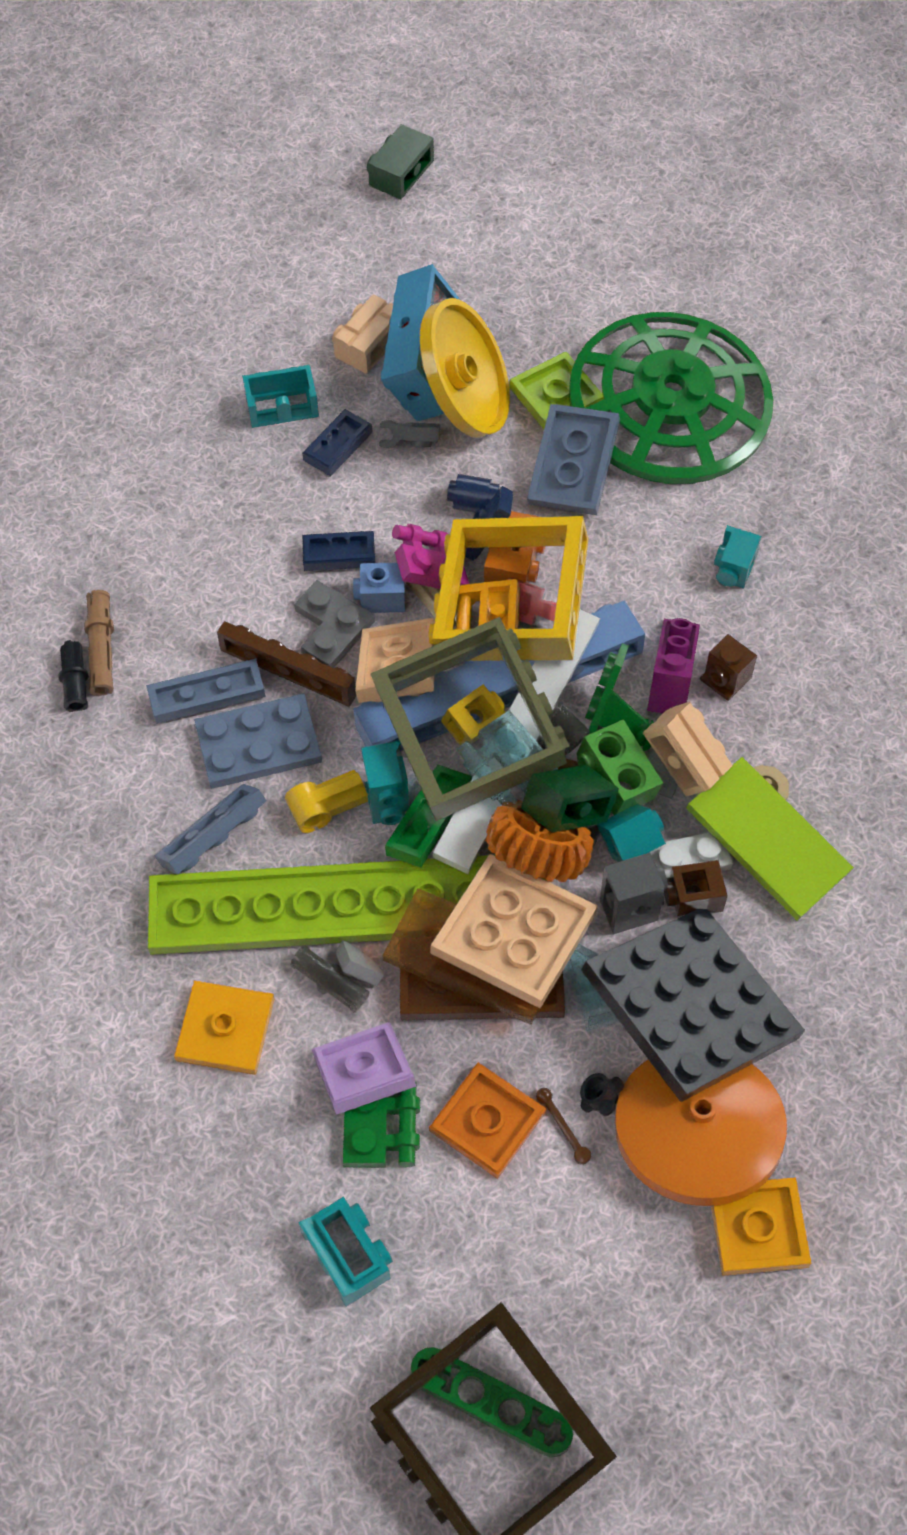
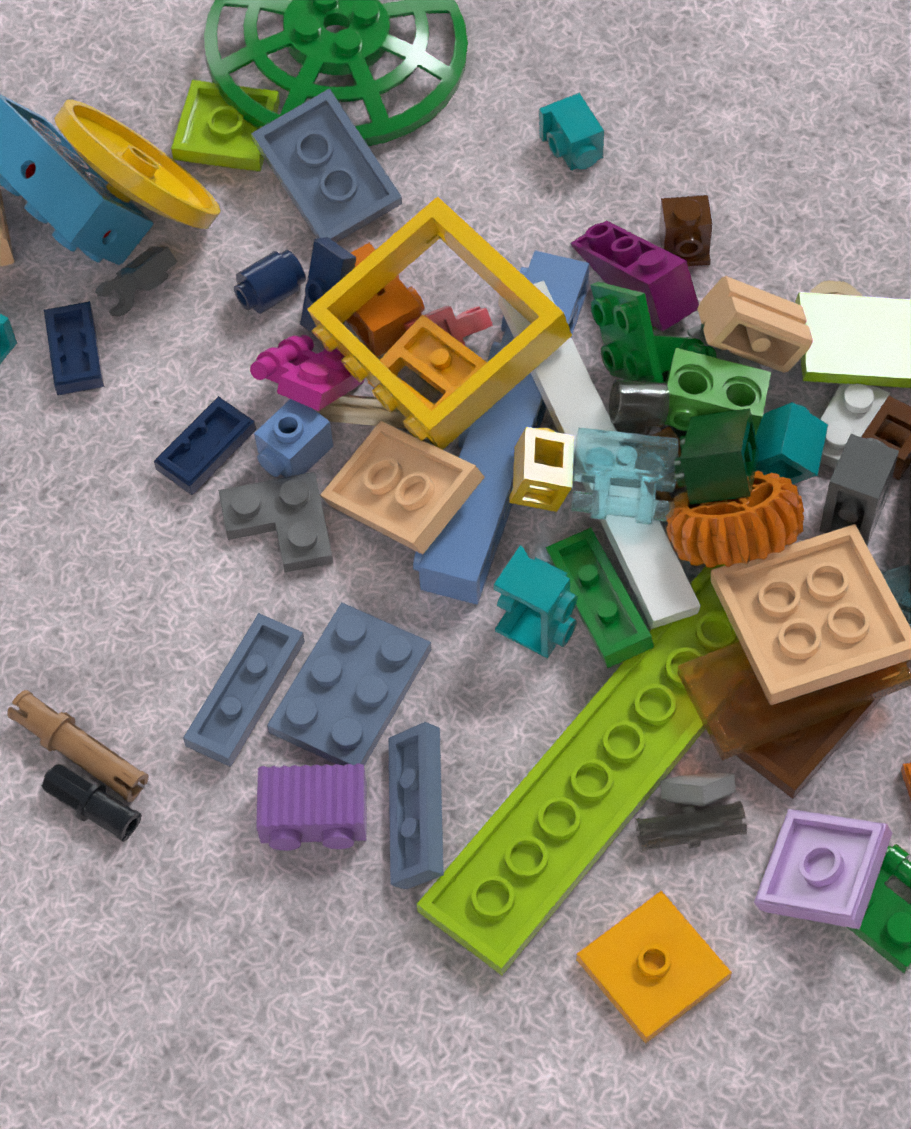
camera: 45 degrees left, 0 degrees up
(164, 779) = (312, 805): none -> medium lavender brick
(295, 667) = (292, 590): reddish brown plate -> none
(317, 804) = (484, 684): yellow piece -> none
(447, 655) = (539, 538): olive window -> none

